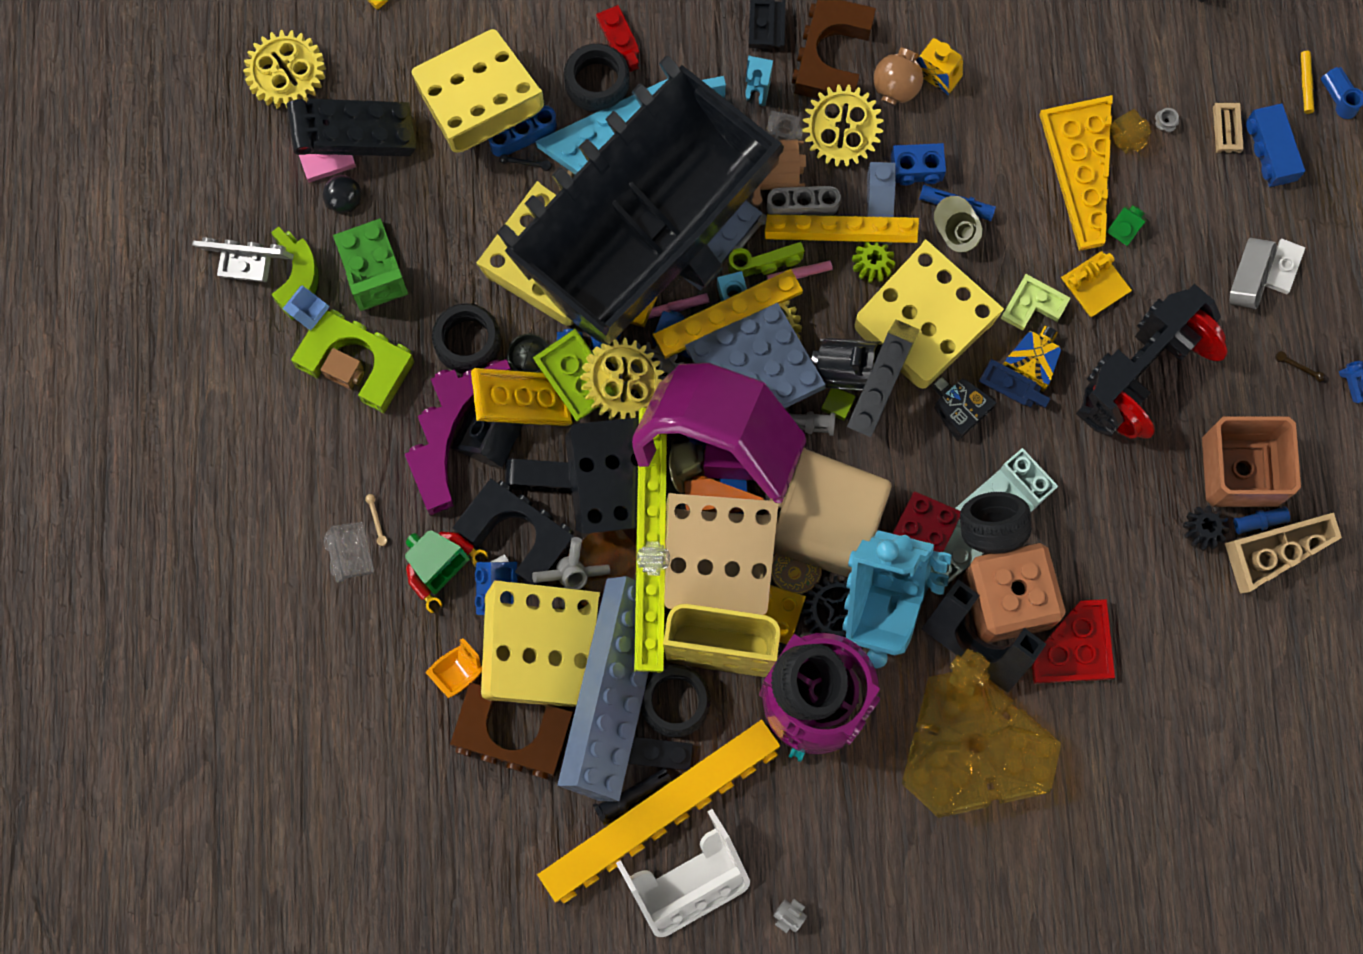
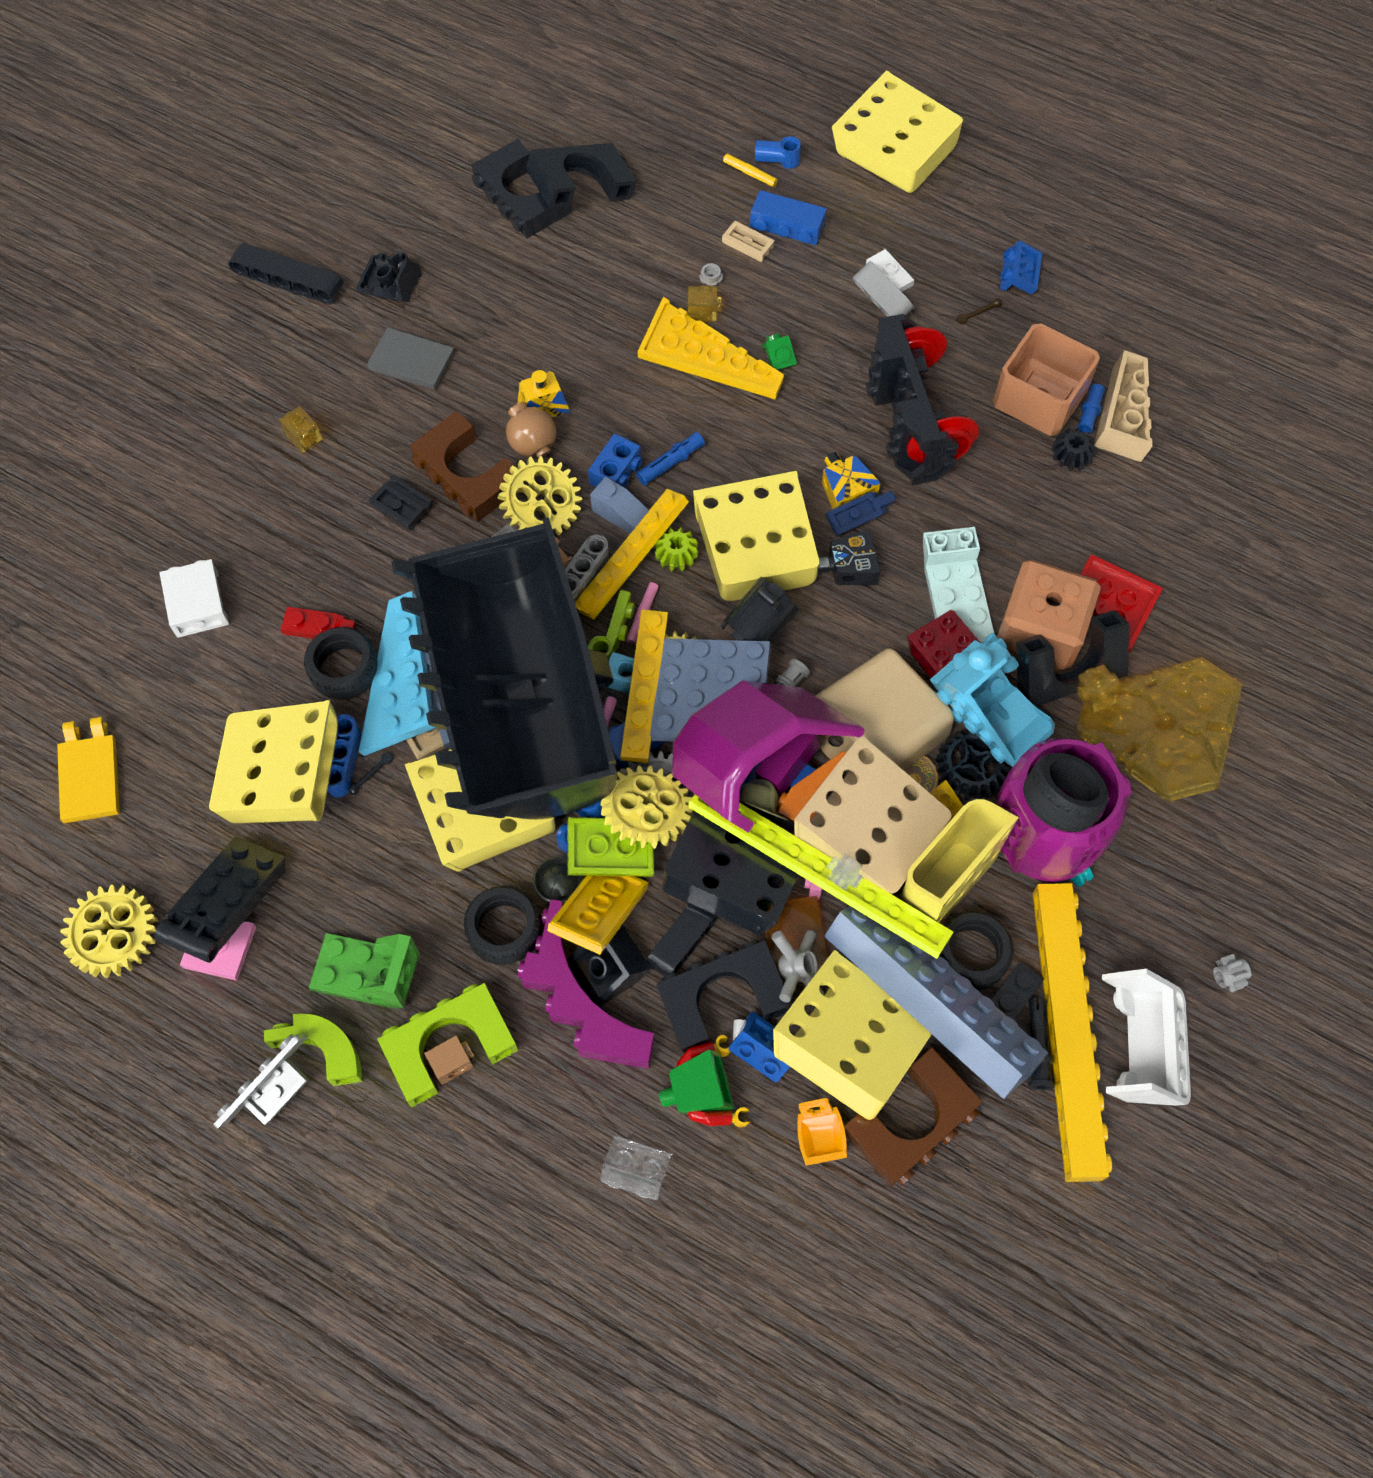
camera: 55 degrees left, 10 degrees down
(306, 307) = (367, 1053): medium blue panel -> none
(342, 194) = (274, 955): black hair -> none
(381, 540) = (643, 1128): tan hinge -> none
(758, 78) = (447, 530): medium azure hinge -> none
(838, 403) = (782, 652): lime tile -> none
(883, 377) = (785, 560): black arch -> none
(958, 224) = (692, 465): olive piece -> none
(995, 522) = (970, 575): black tyre -> none
(1033, 296) = (793, 452): yellowish green plate -> none
(1096, 283) = (812, 403): yellow hinge -> none

